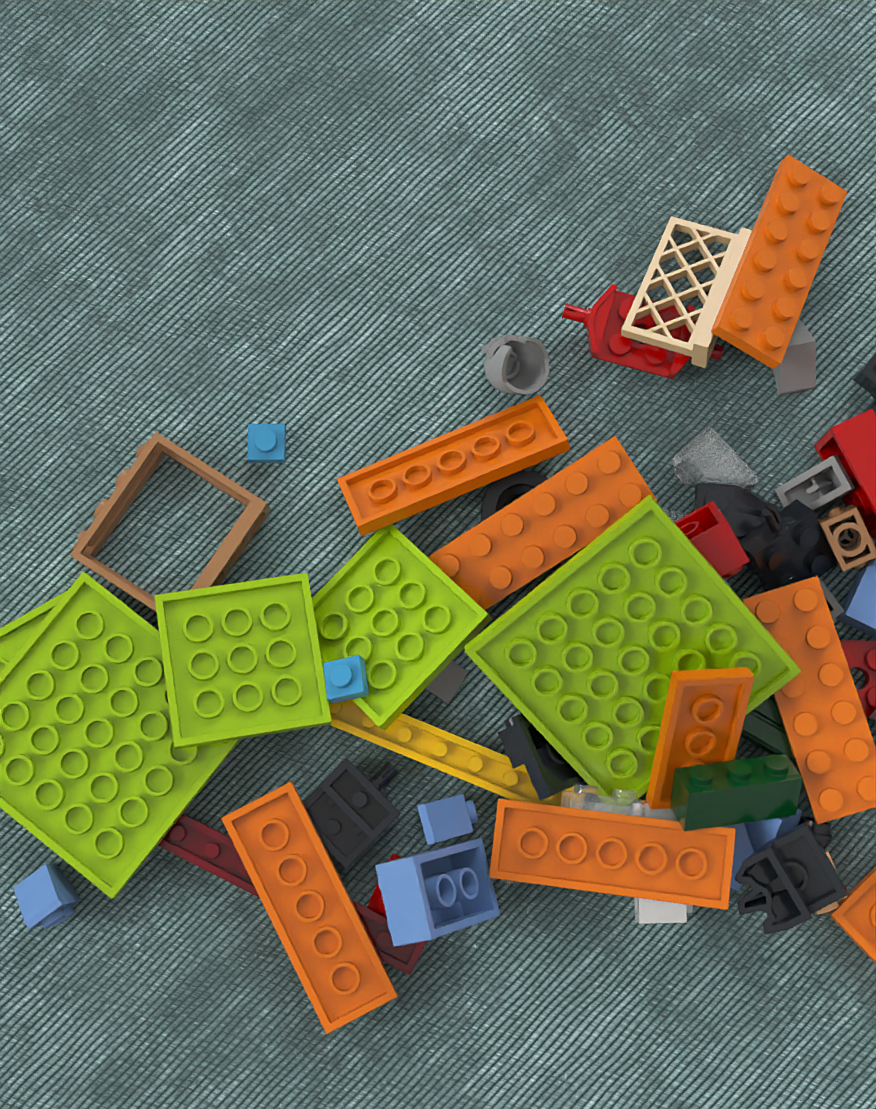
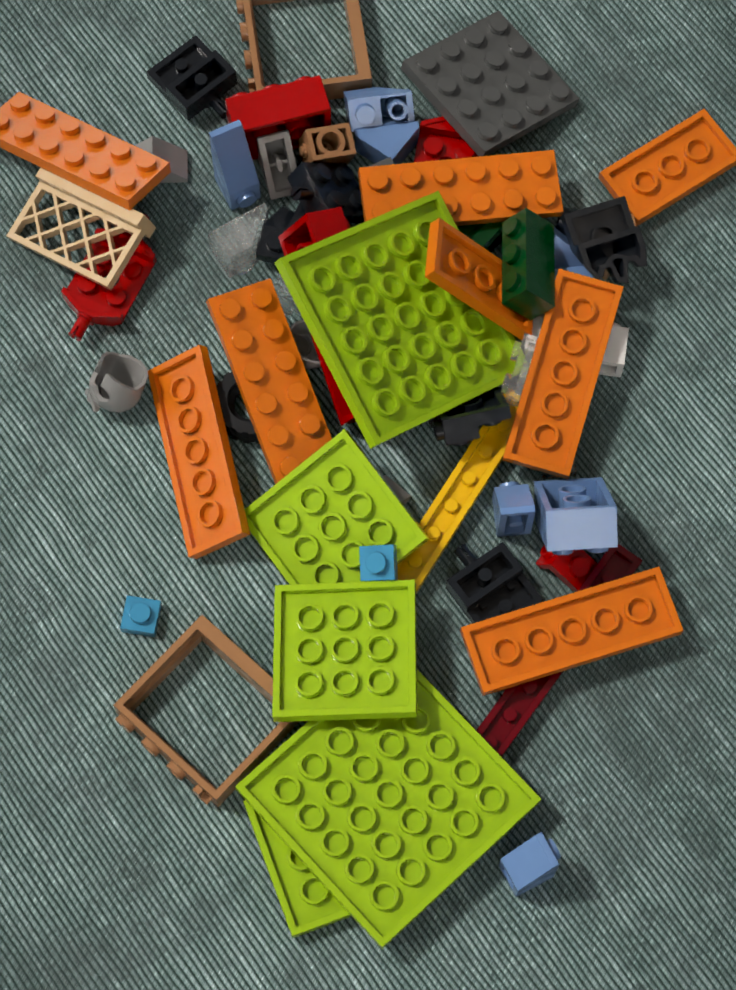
camera: 85 degrees left, 10 degrees down
(795, 437) = (234, 166): none -> medium blue slope

